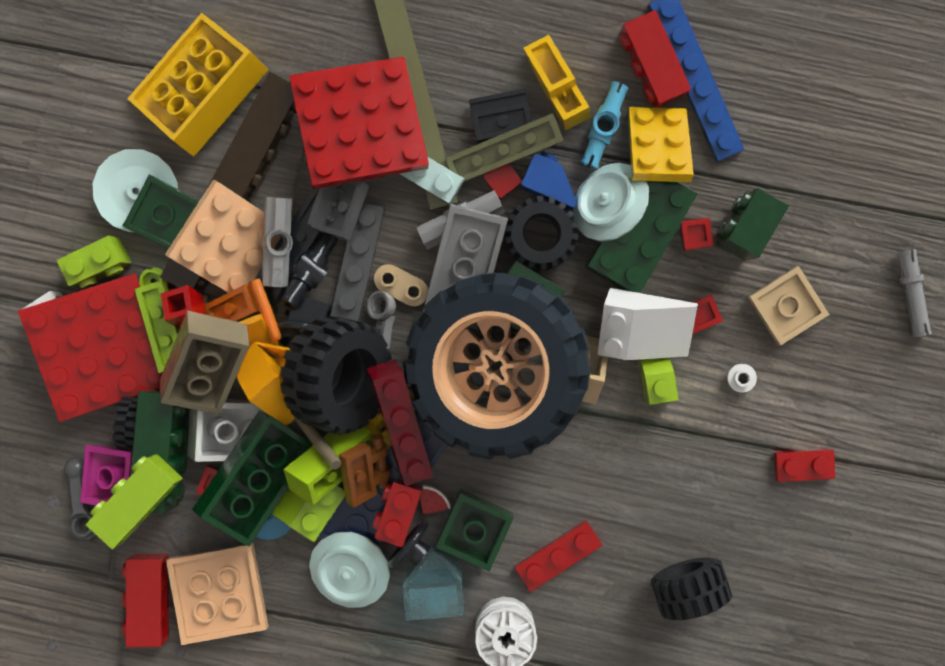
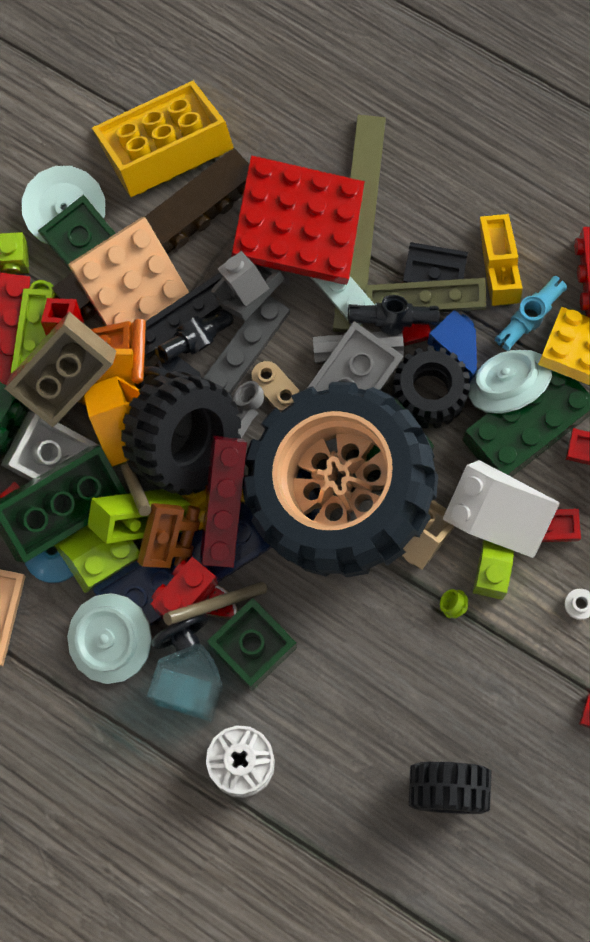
camera: 20 degrees right, 15 degrees down
(276, 262) = (184, 280): light grey piece -> none
(332, 204) = (243, 278): none -> light grey brick
(429, 511) = (214, 603): none -> dark tan bar
(472, 187) = (393, 314): none -> black pin
(558, 555) = (325, 711): red plate -> none
(633, 421) = (454, 603): none -> lime plate

